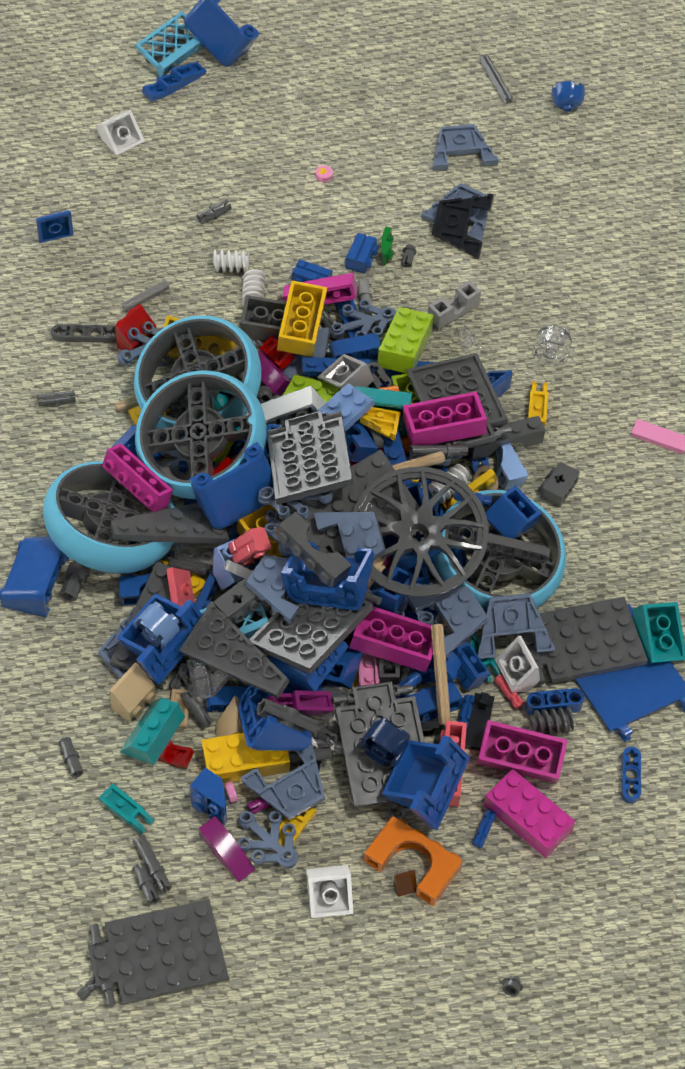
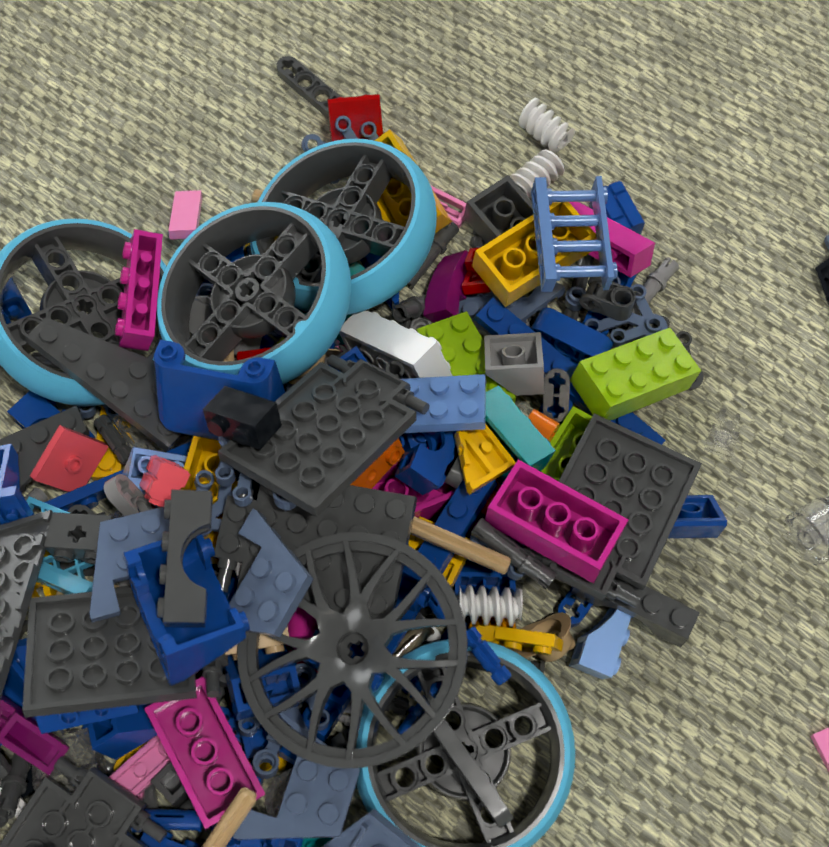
camera: 45 degrees right, 10 degrees up
(56, 398) = (205, 135): dark grey pin -> none
(96, 439) = (185, 214): none -> bright pink tile
(146, 295) = (418, 96): light grey axle -> none
(213, 211) = (588, 57): dark grey pin -> none
(270, 476) = (242, 417): none -> black brick
(313, 307) = (549, 247): none -> medium blue fence
(324, 173) = (759, 105): bright pink tile -> none
(356, 316) = (606, 300): none -> dark grey piece
(361, 253) = (704, 228): blue brick -> none
(386, 245) = (745, 238): green slope -> none
(409, 252) = (763, 271): dark grey pin -> none
(465, 299) = (768, 382): light grey arch -> none
(513, 514) = (509, 726): blue slope -> none
(538, 402) = (726, 591): yellow hinge -> none
(560, 484) = (632, 734): dark grey brick -> none

